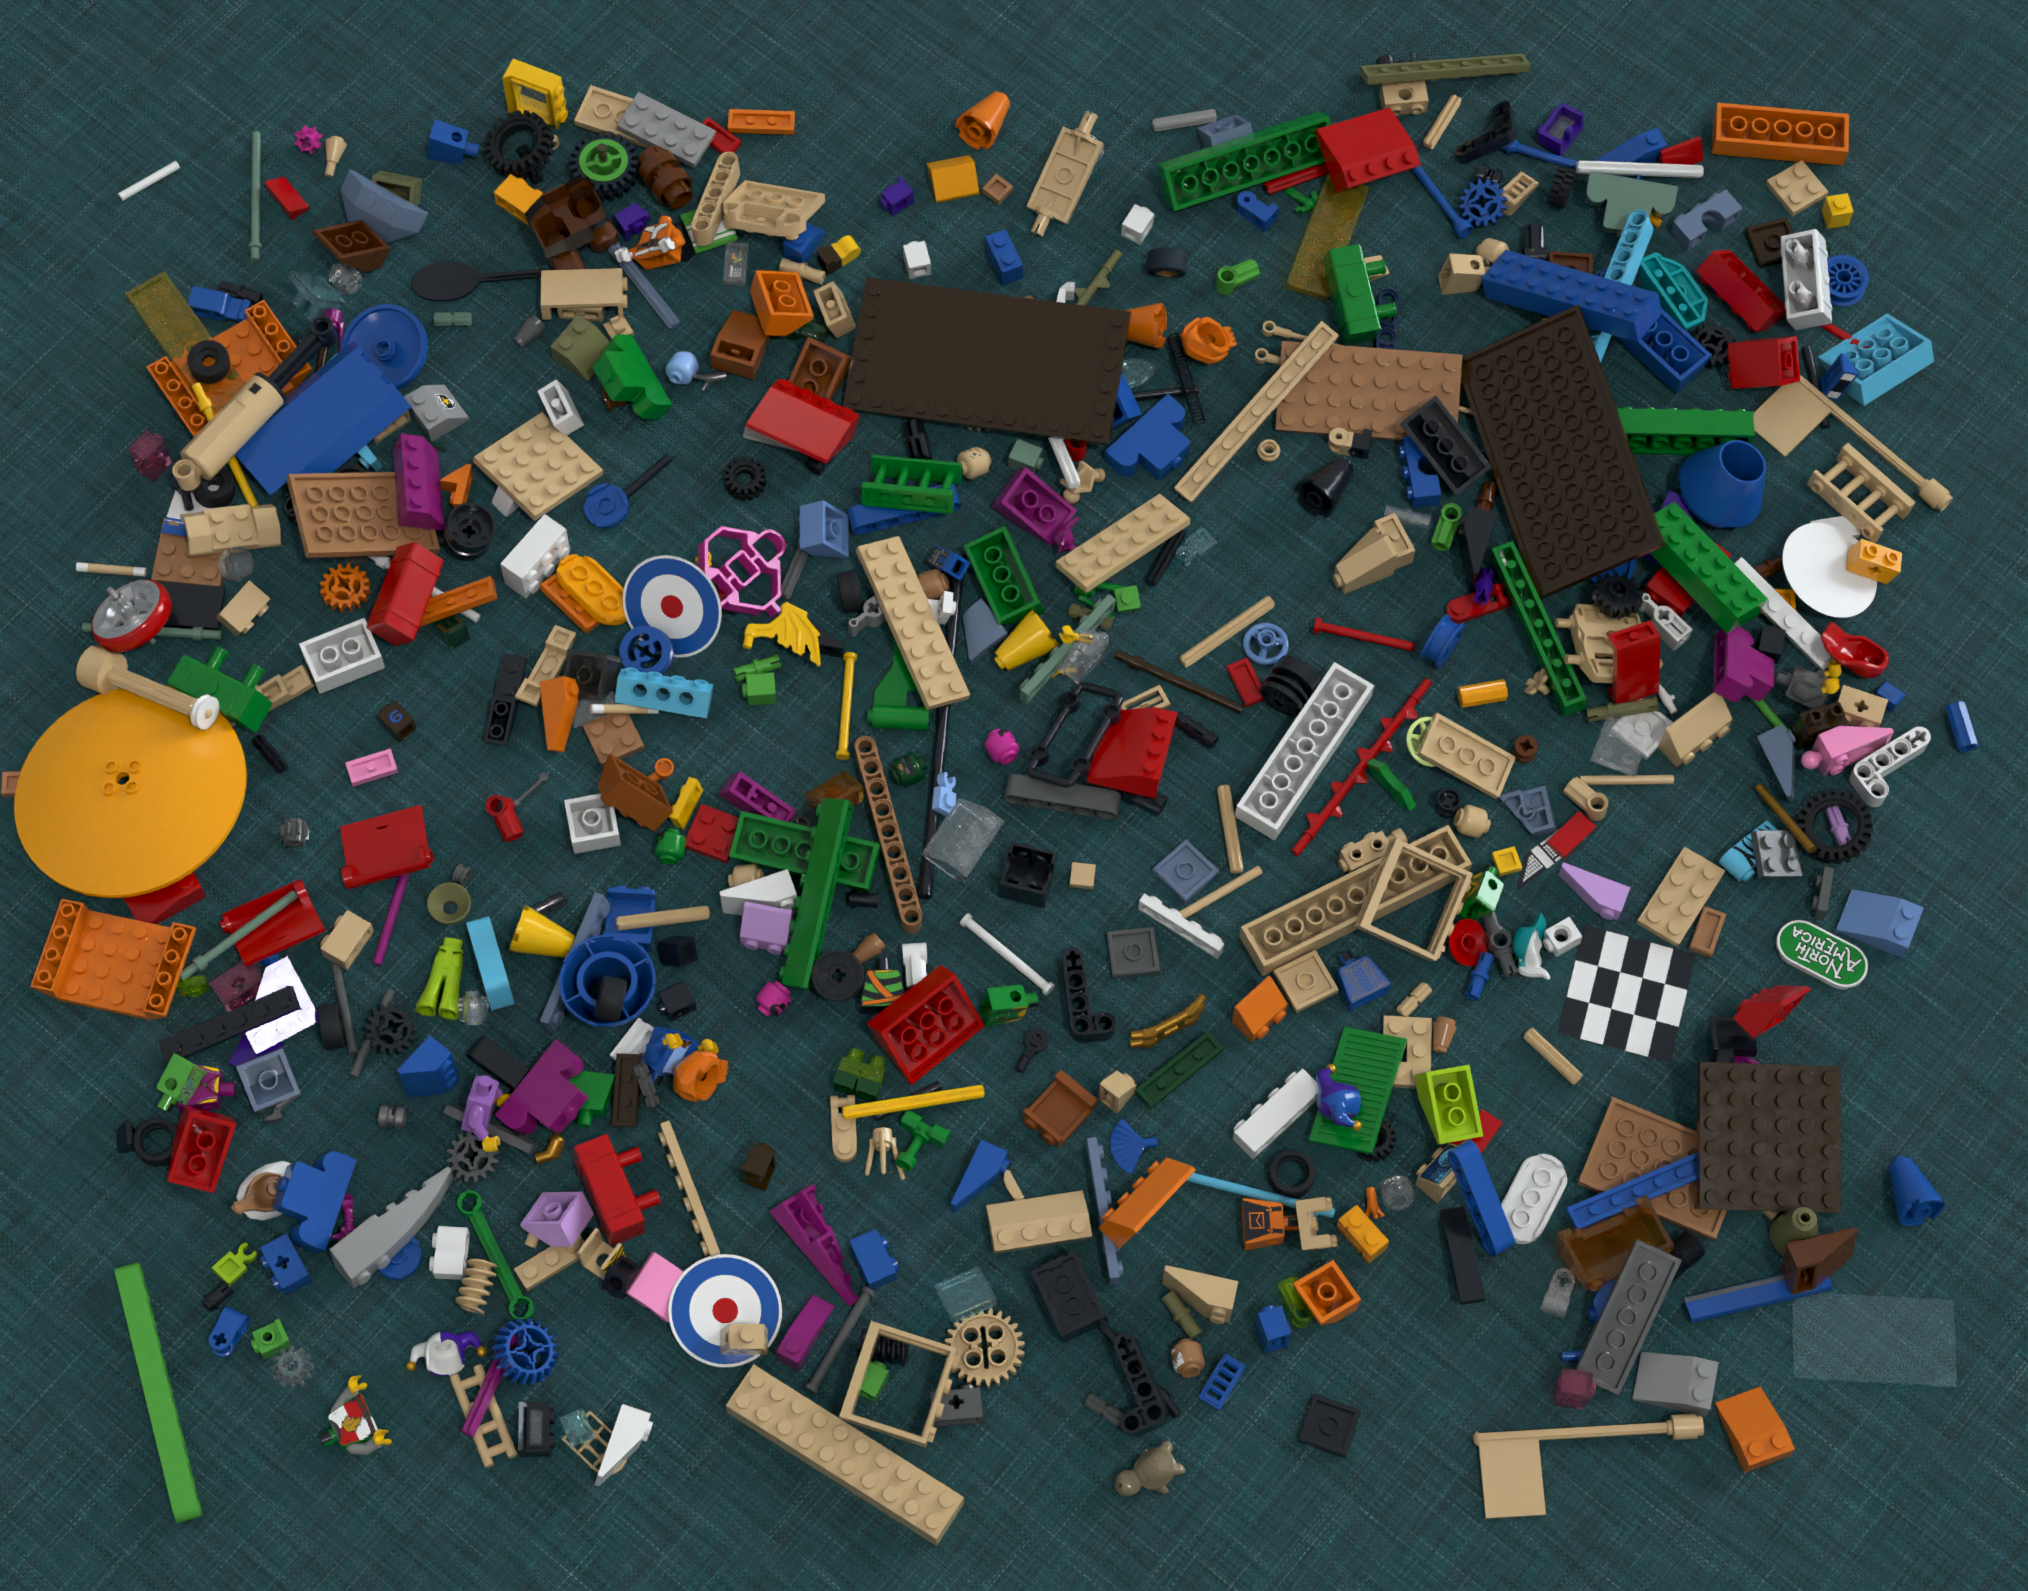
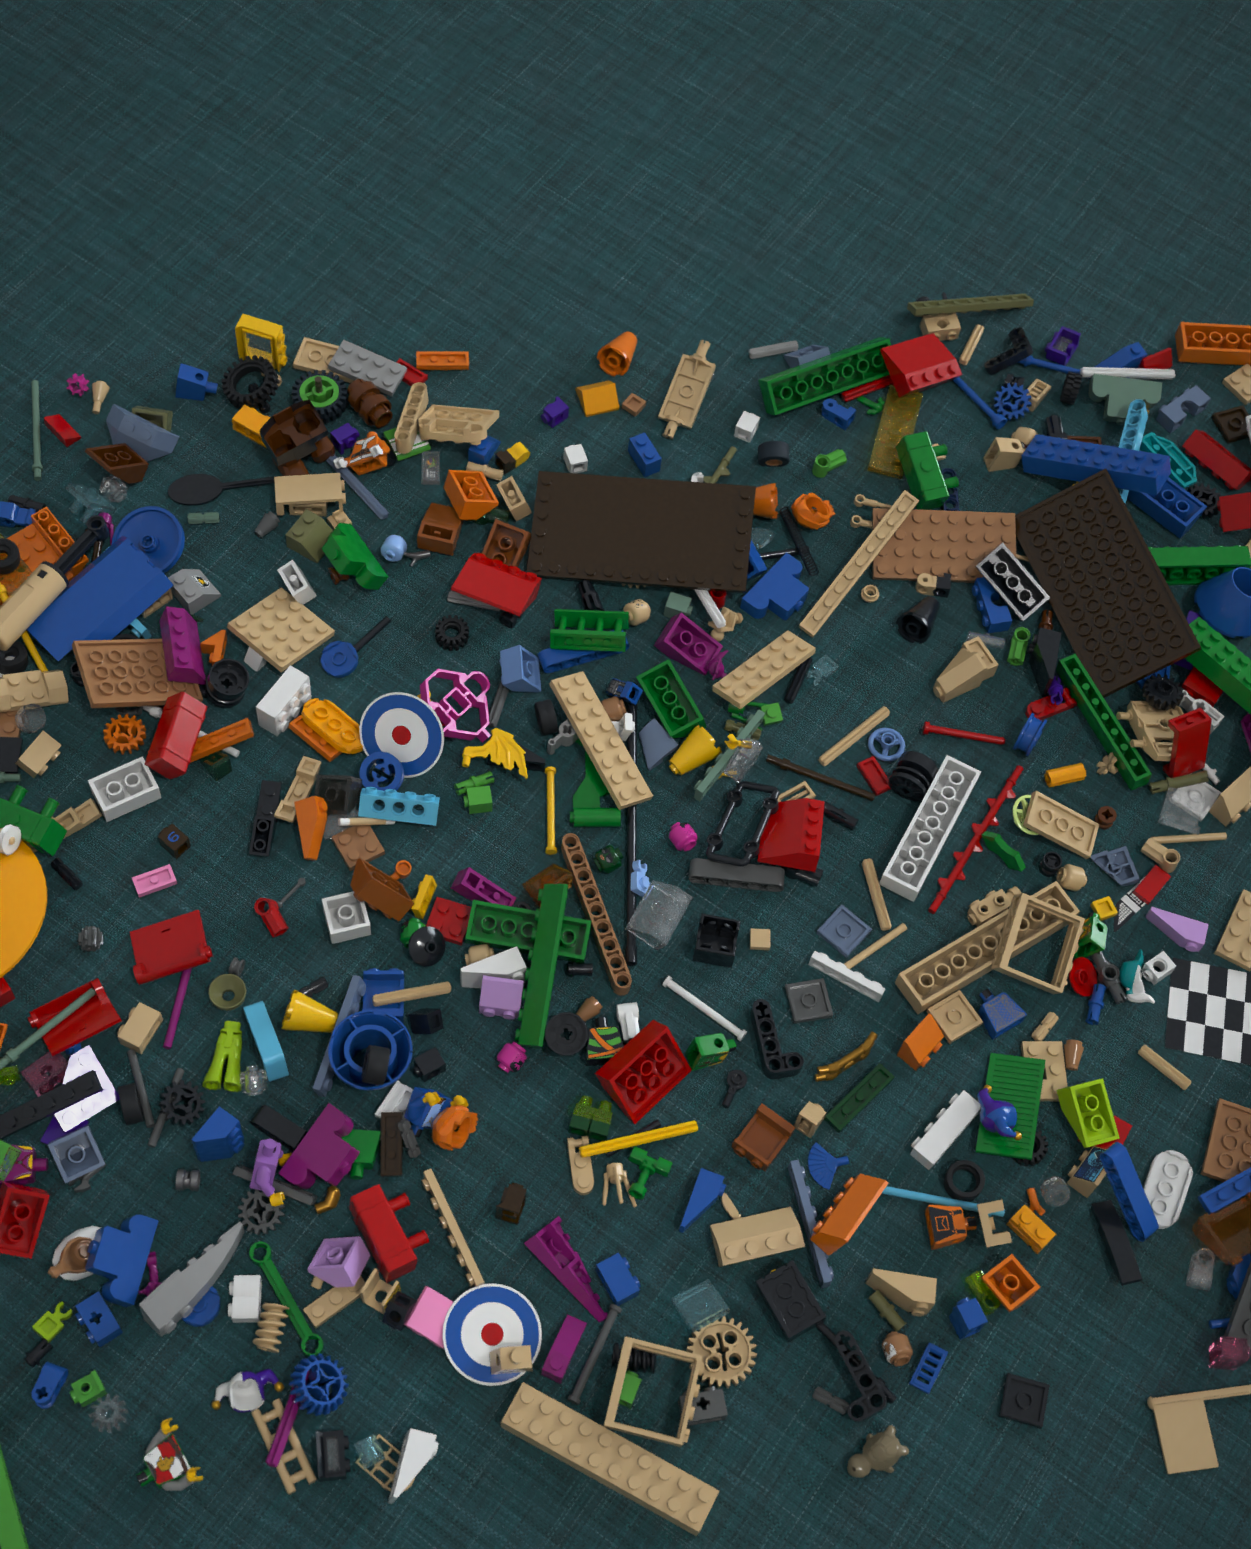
camera: 10 degrees left, 5 degrees down
(675, 859) = (419, 945): none -> black dish

